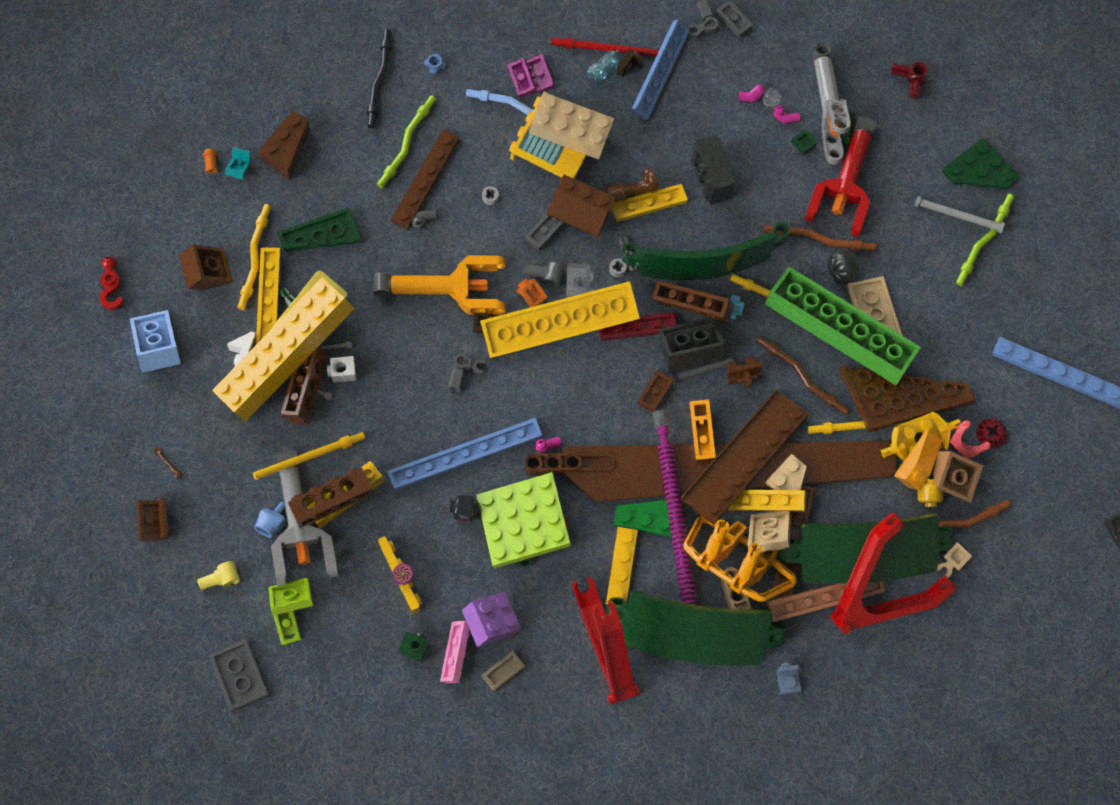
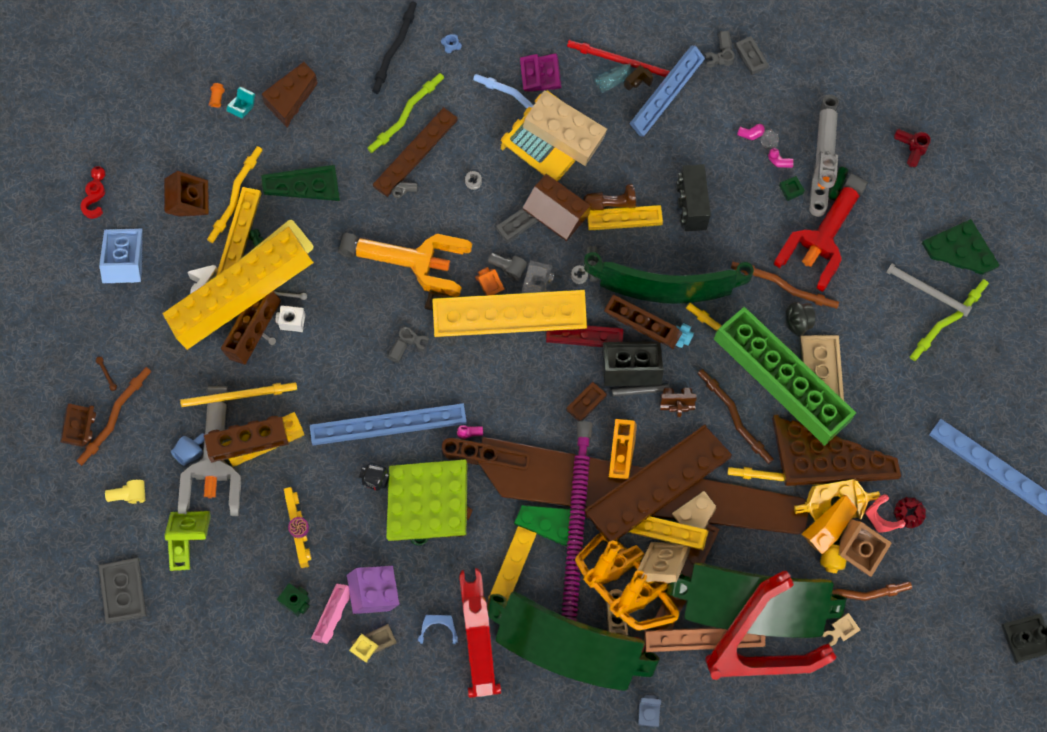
camera: 15 degrees right, 0 degrees up
(173, 539) = (134, 385): none -> dark orange bar
(495, 679) = (363, 648): none -> light yellow tile
(558, 635) = (441, 619): none -> medium blue helmet

